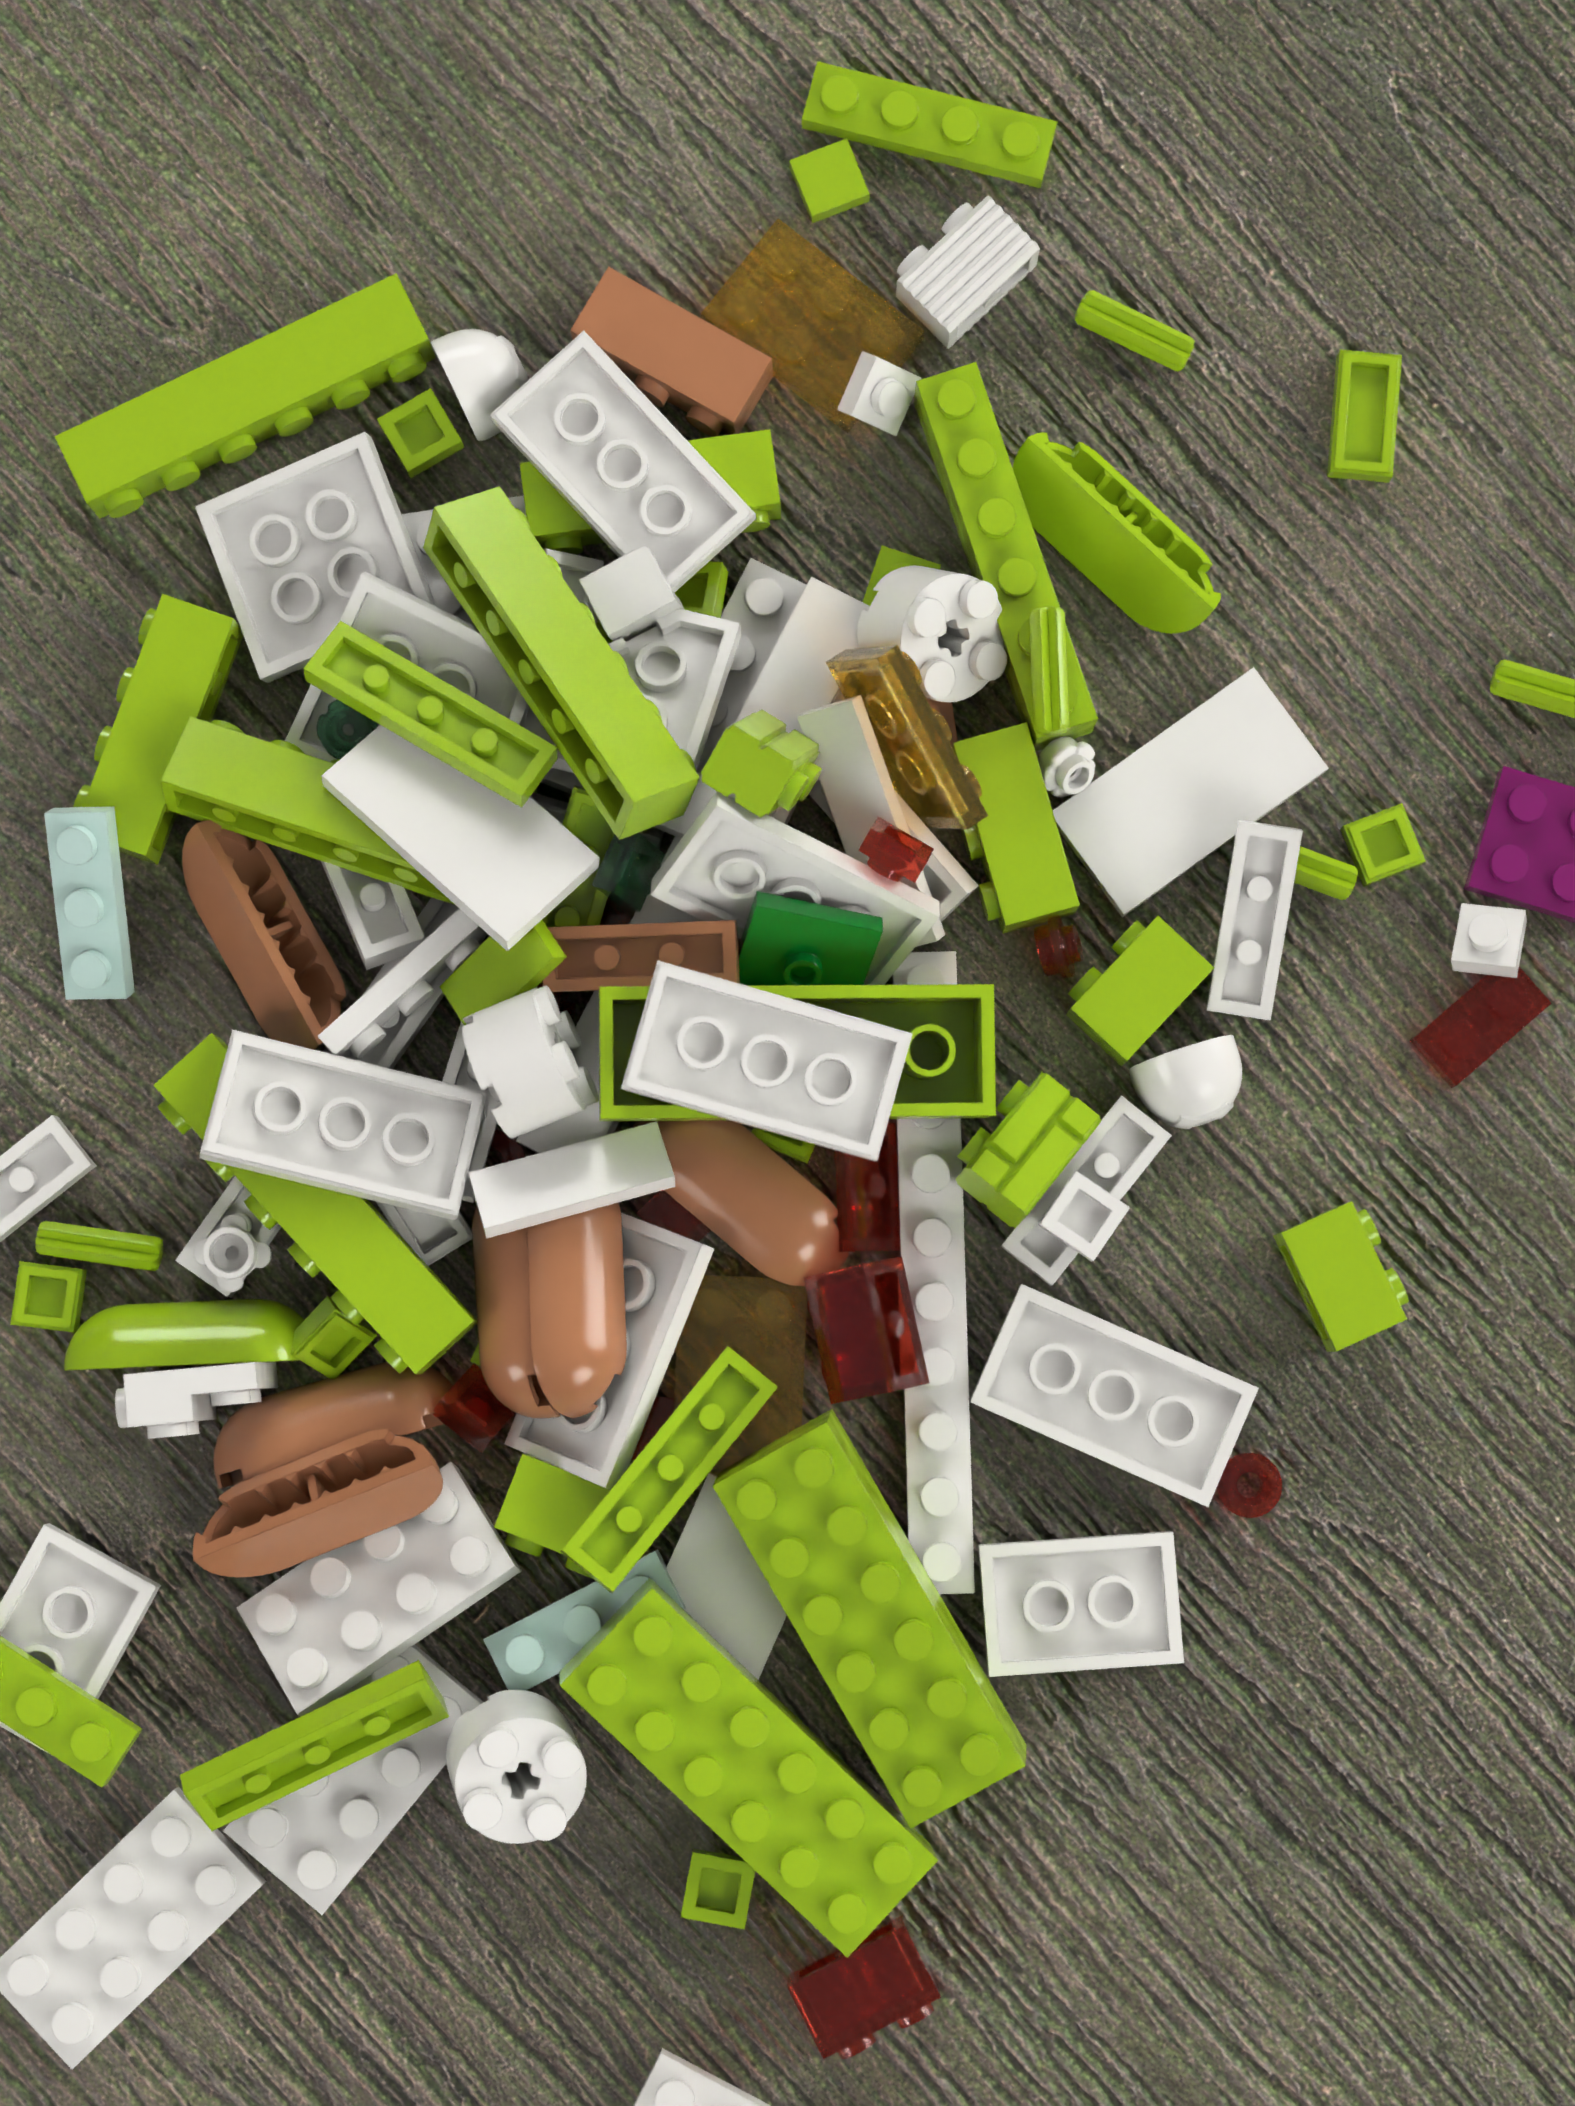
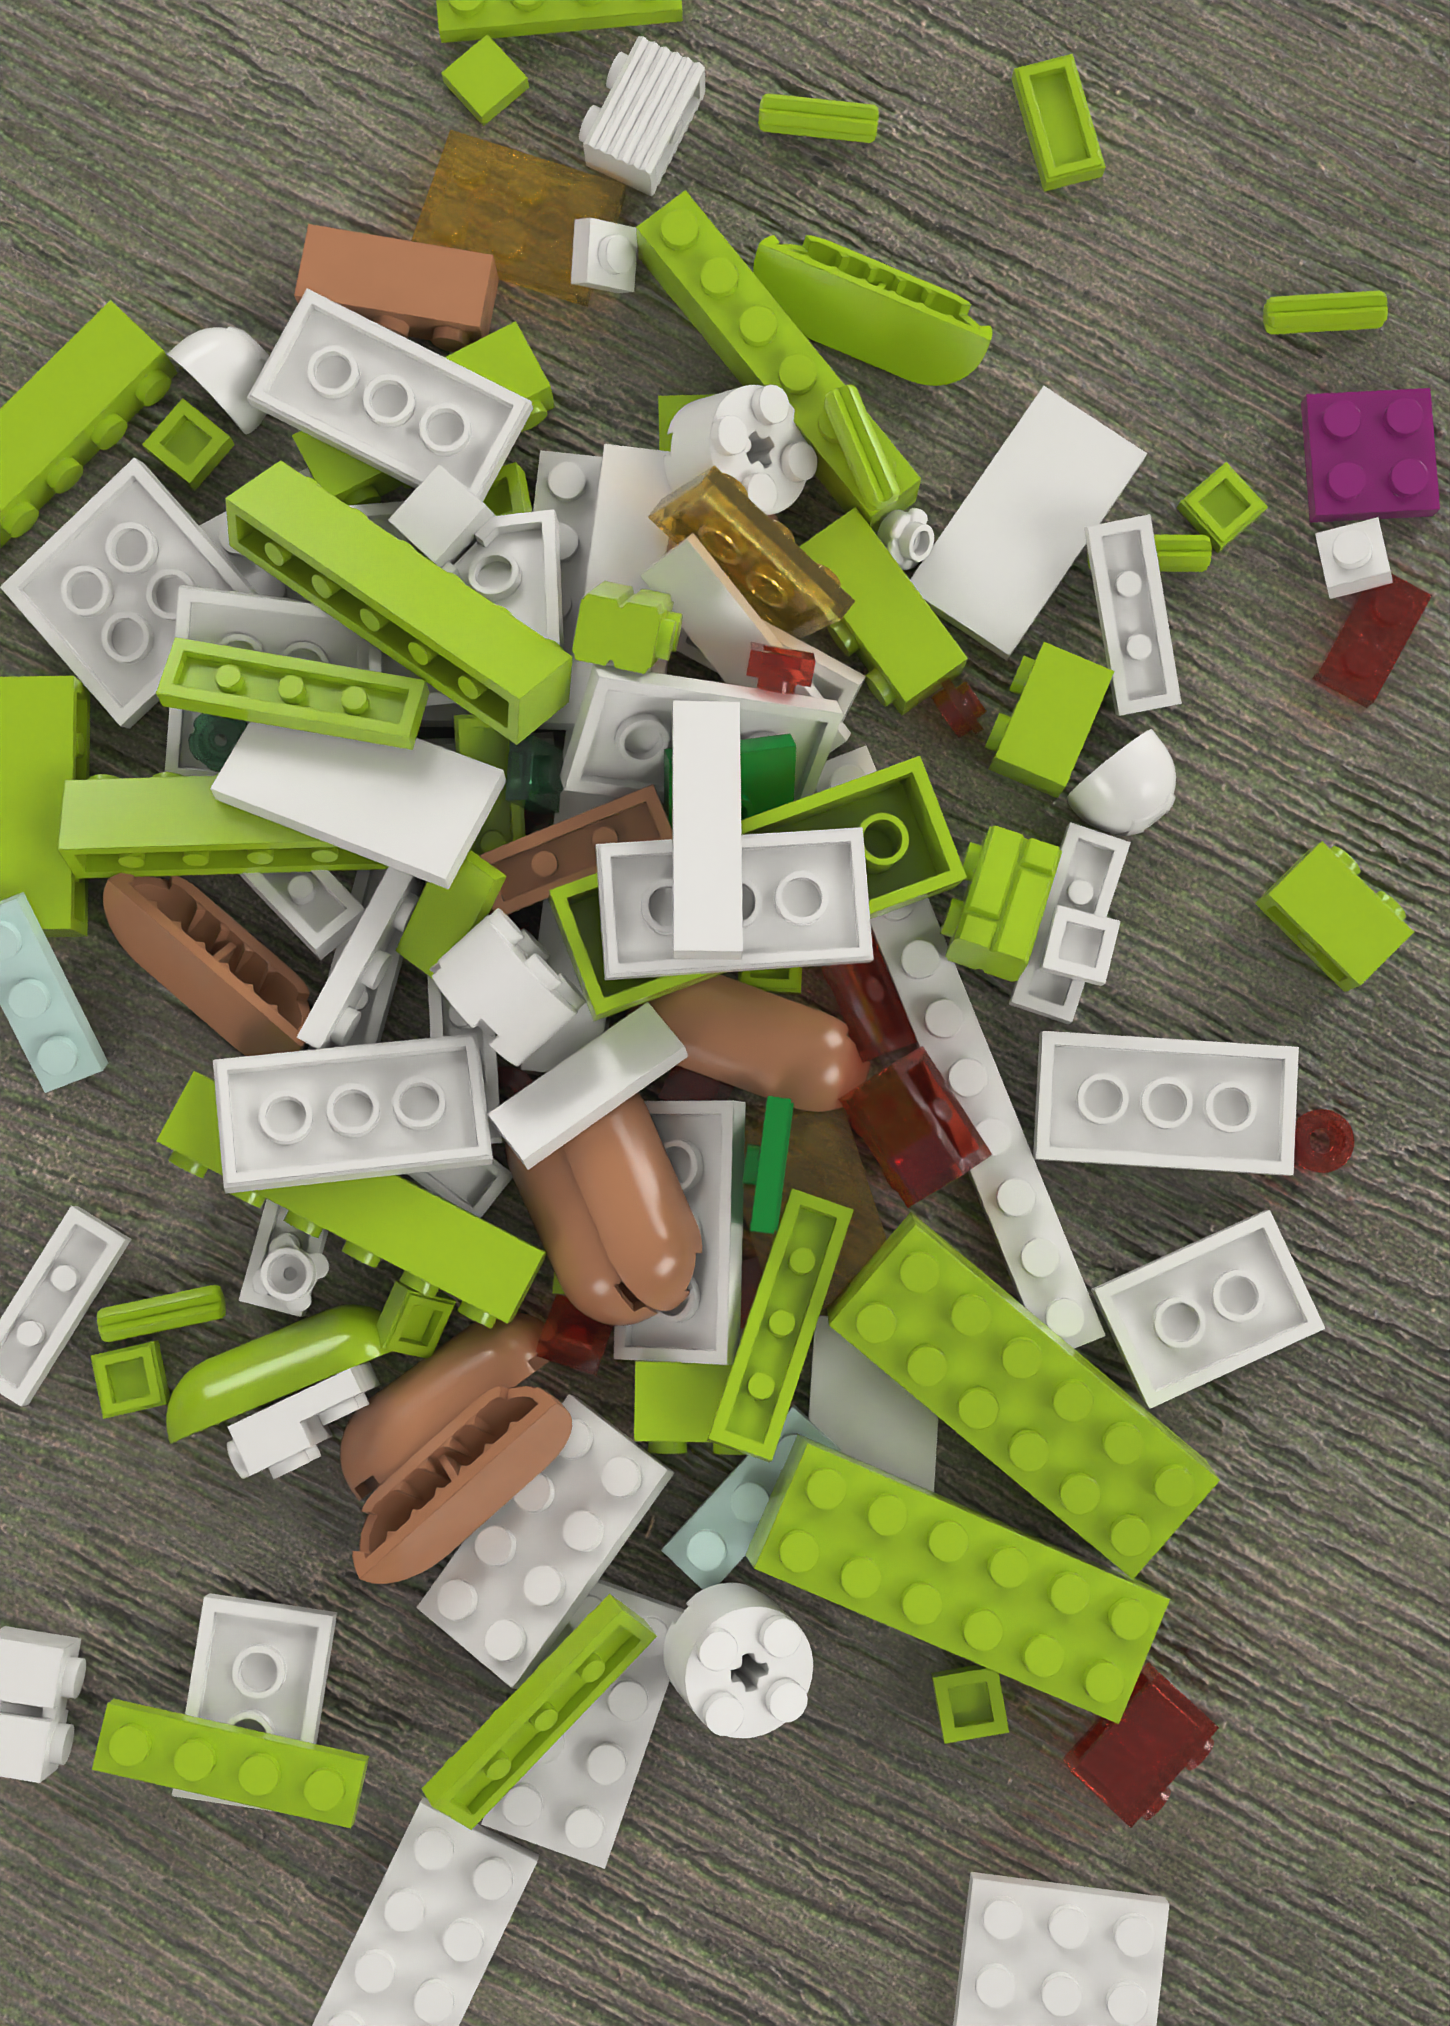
camera: 25 degrees left, 0 degrees up
(710, 1316) = (767, 1164): none -> green plate
(764, 985) = (706, 830): none -> white tile

